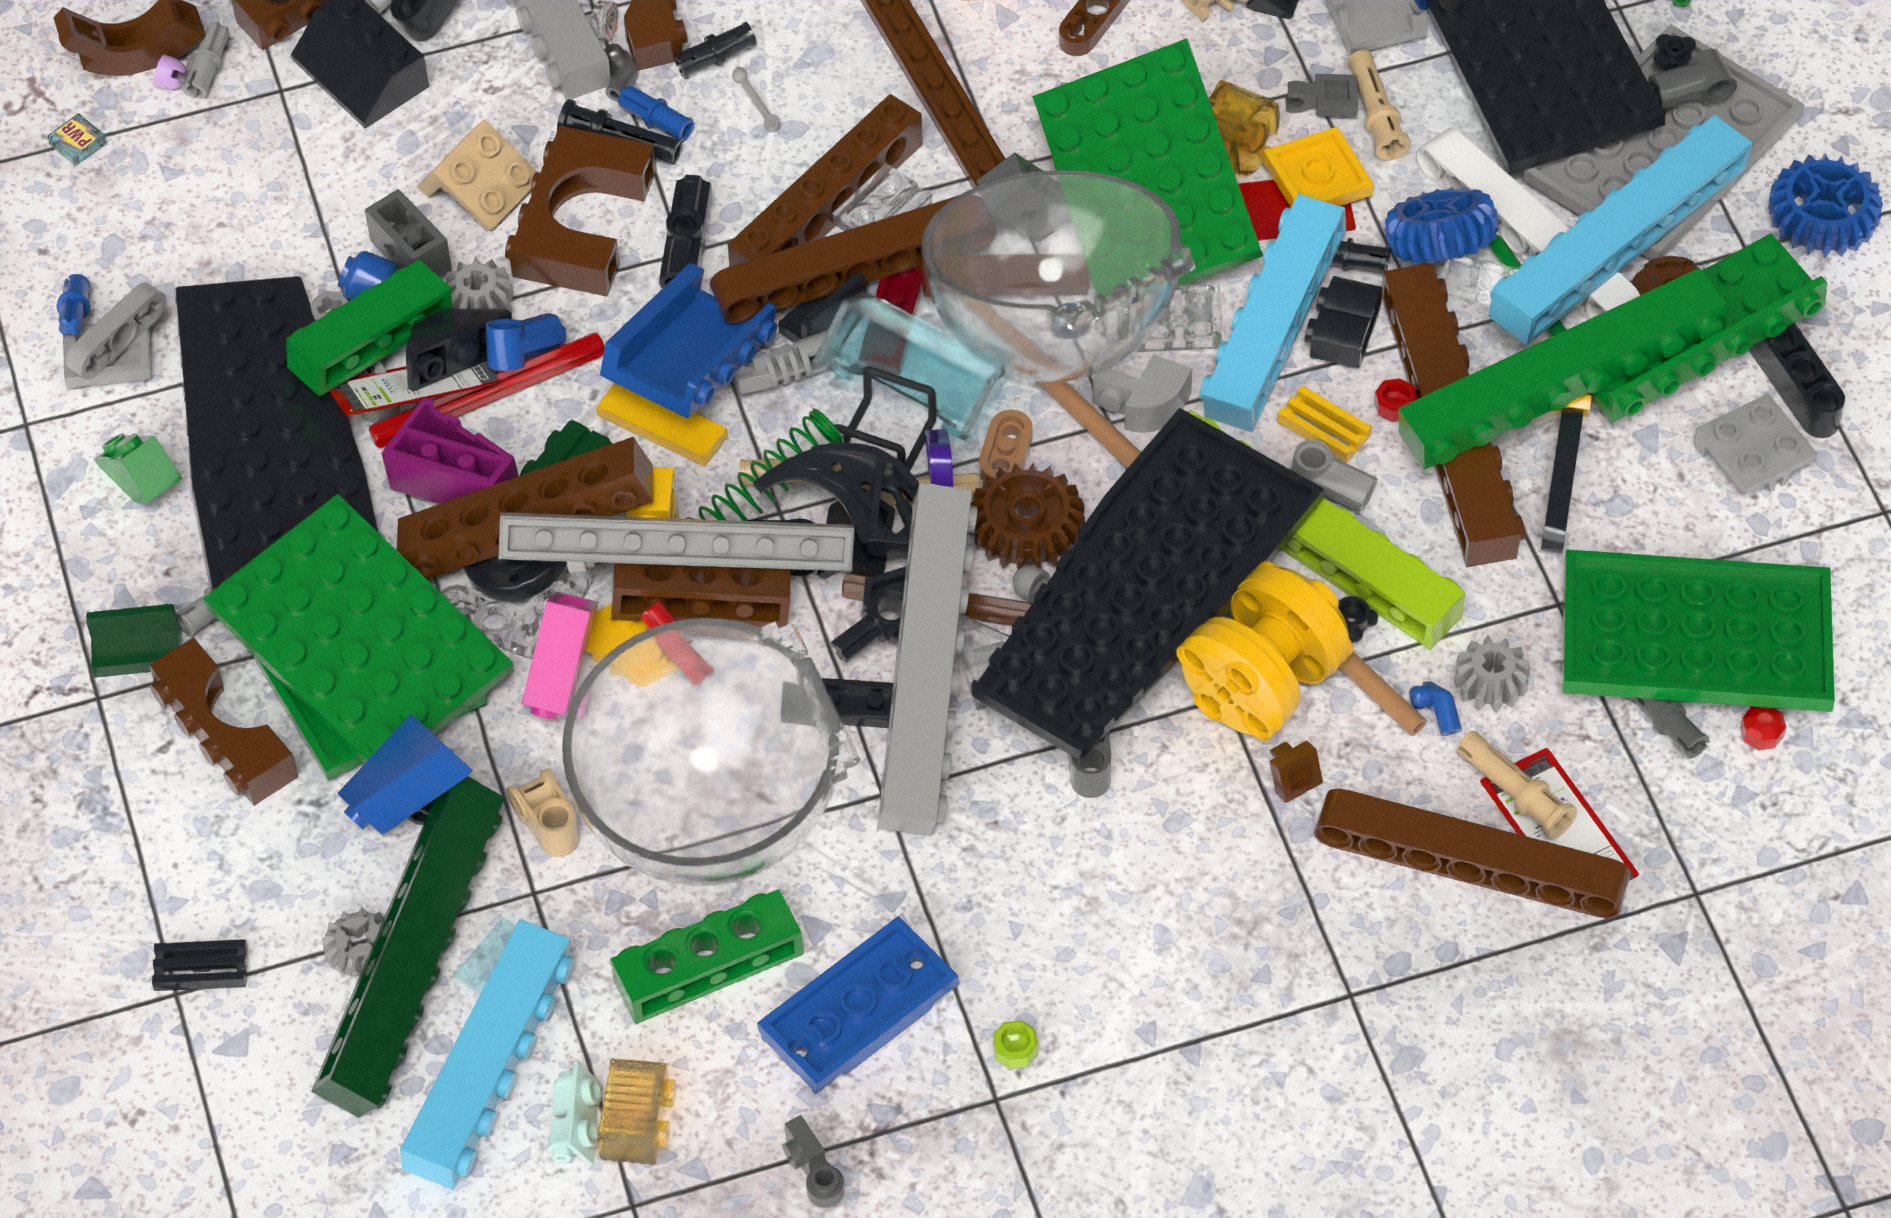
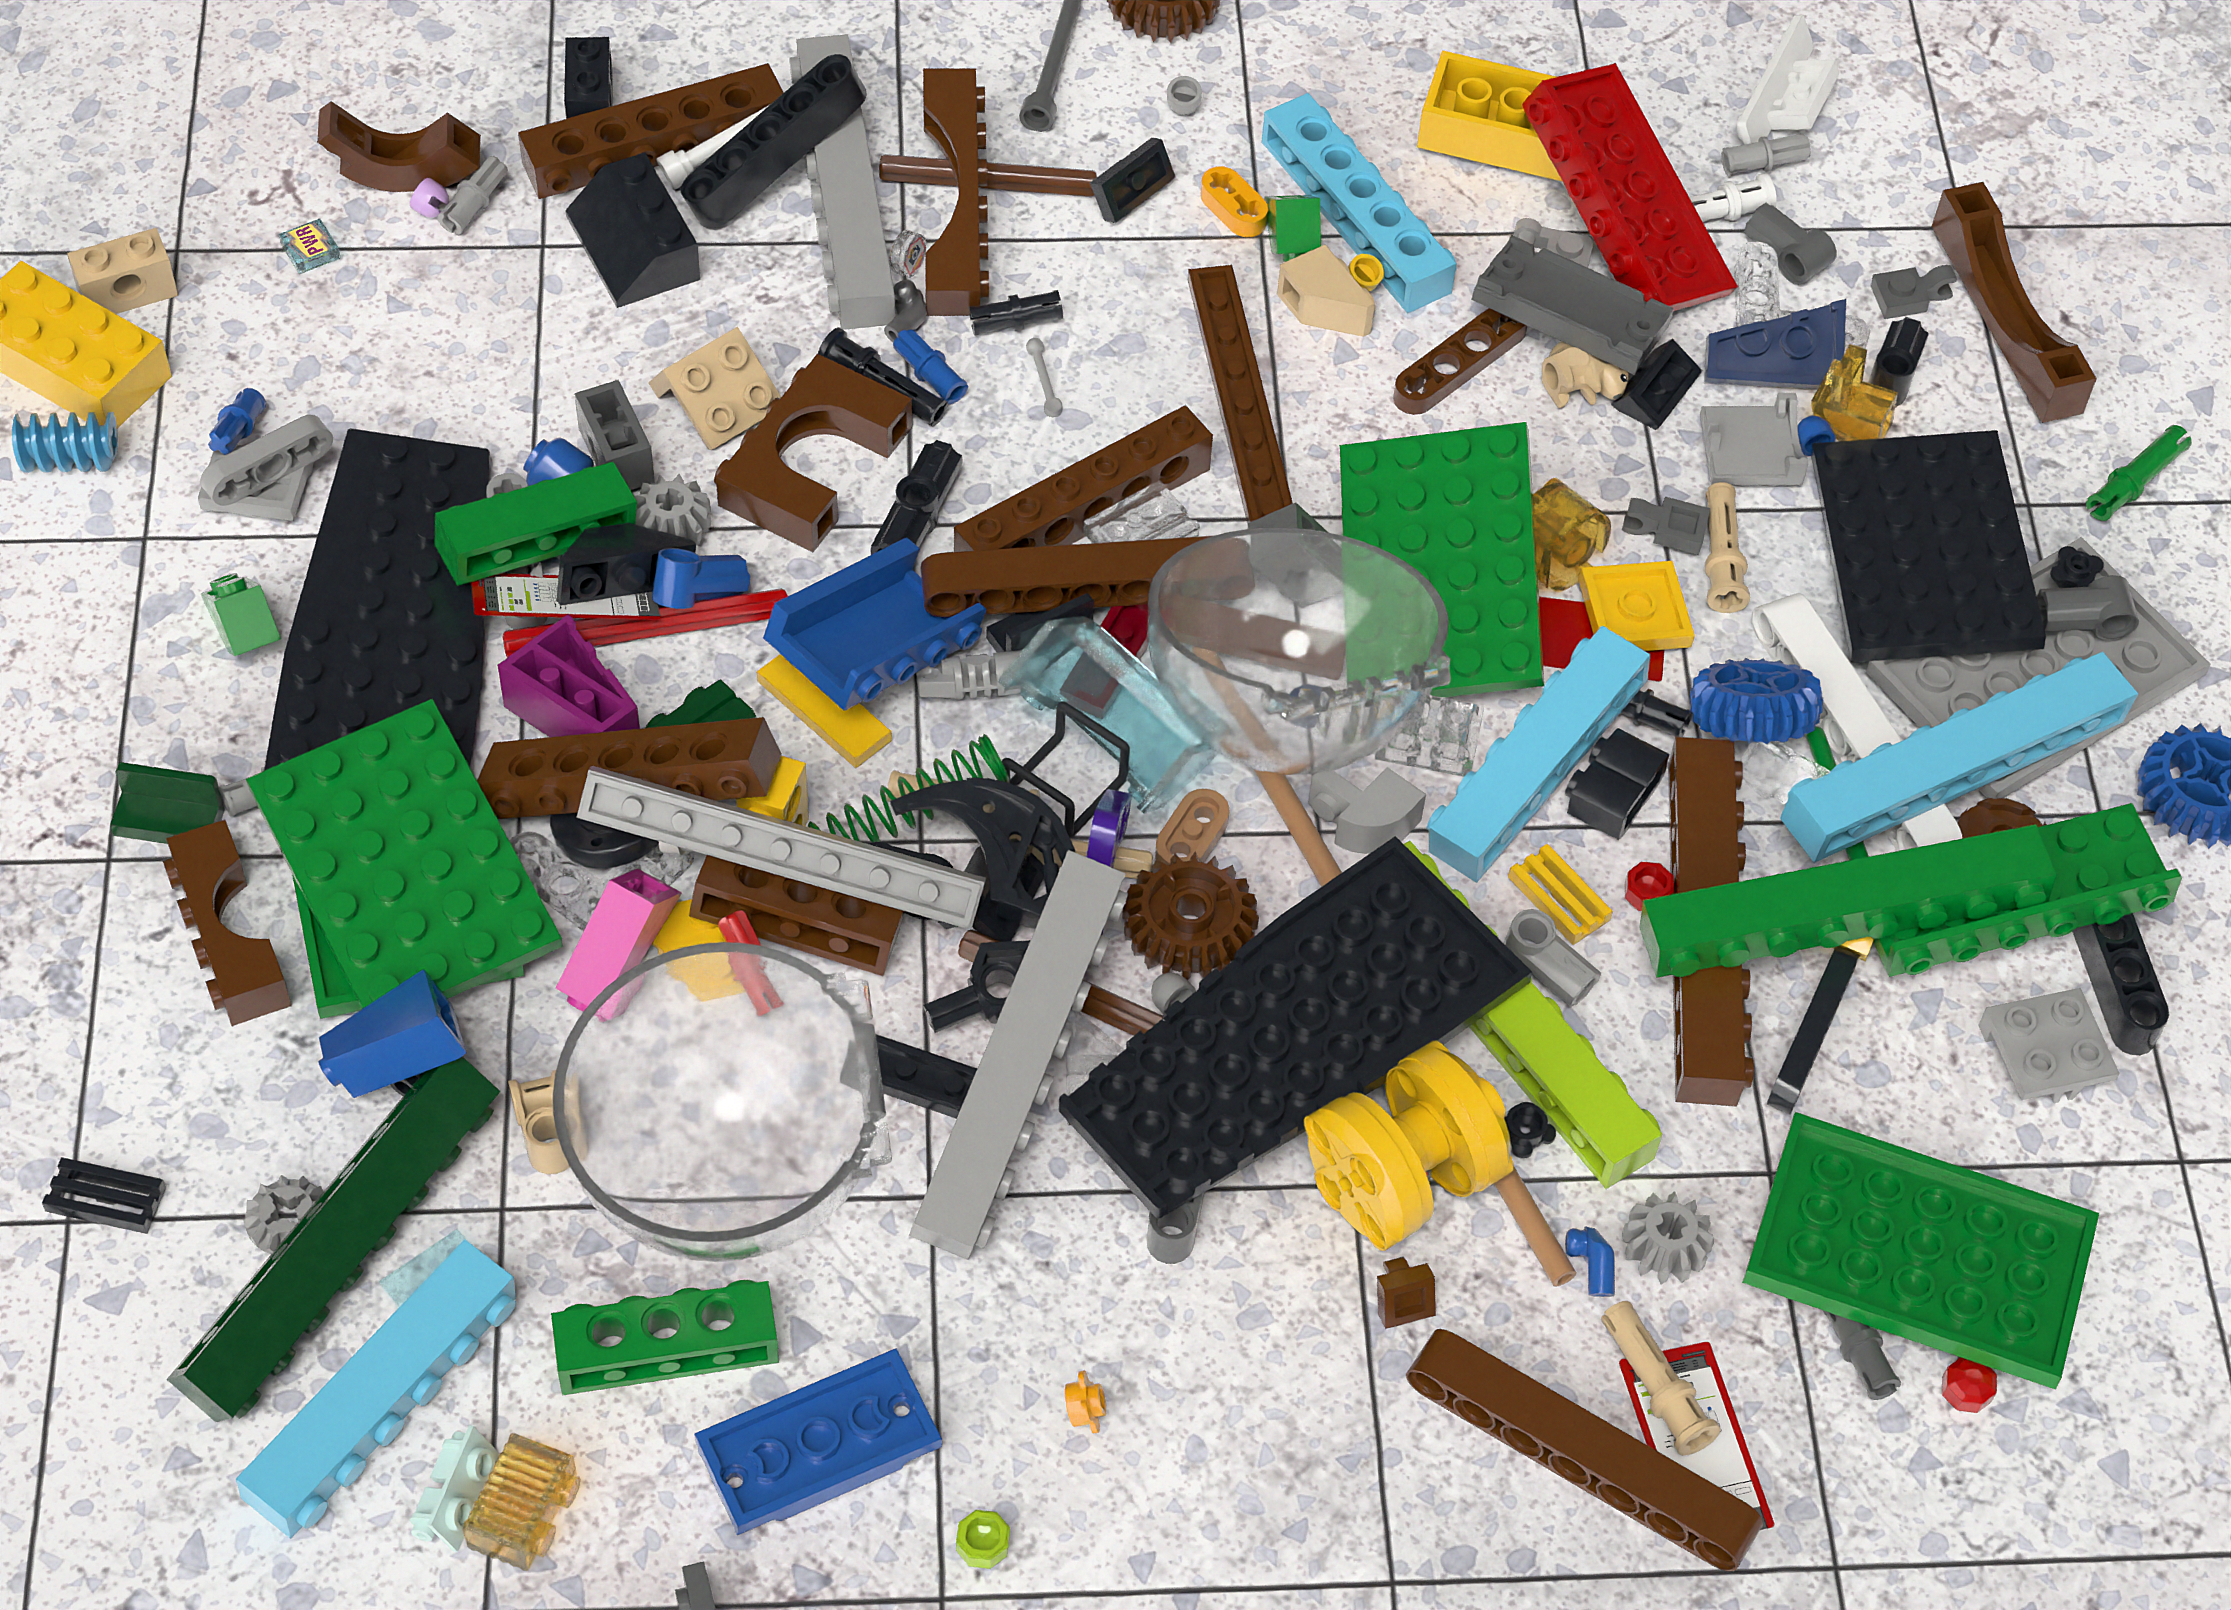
camera: 10 degrees right, 0 degrees up
(1064, 919) = (1085, 1402): none -> light orange plate

